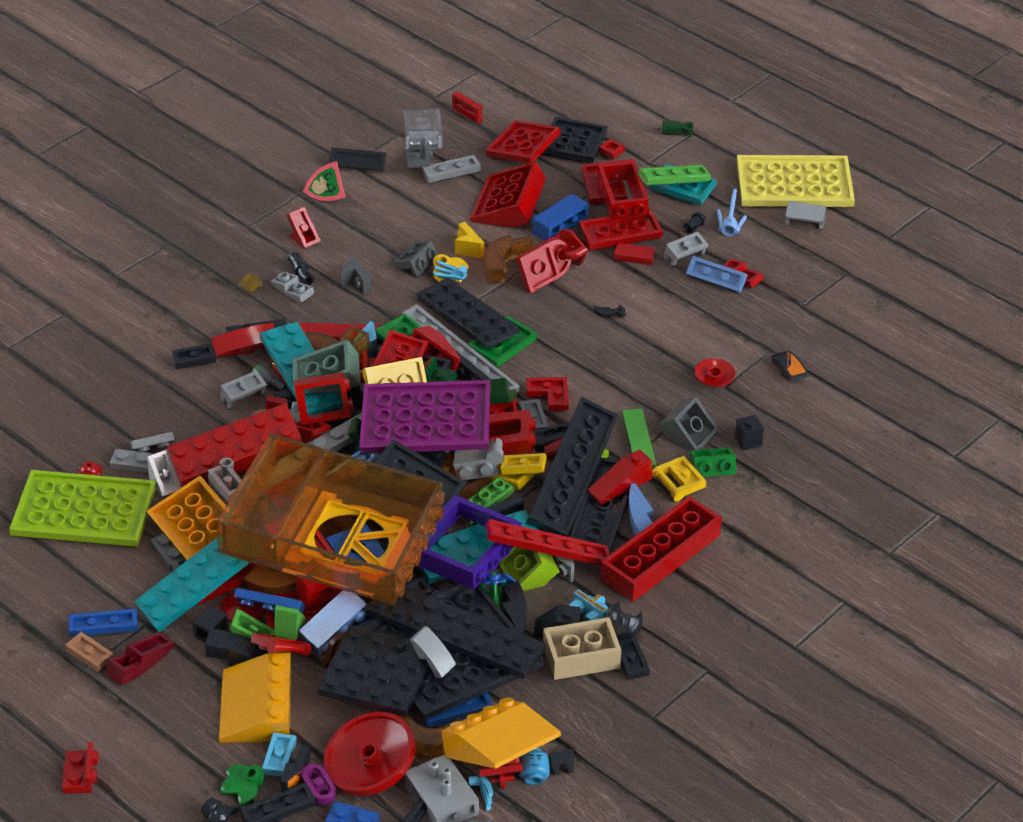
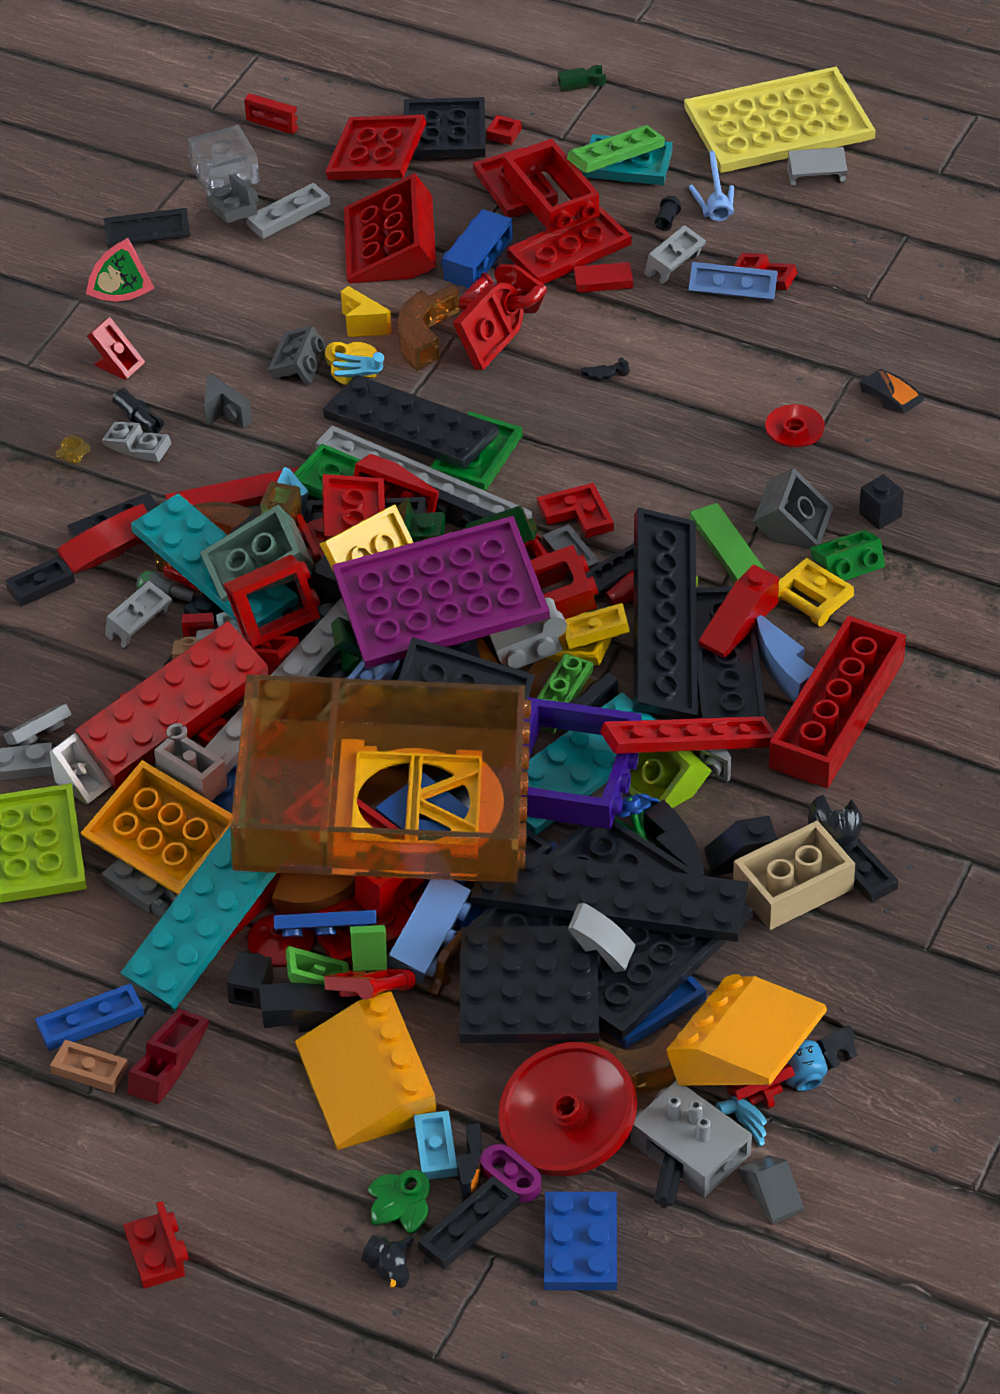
camera: 15 degrees left, 5 degrees up
(591, 607) = (784, 814): medium azure hips -> none

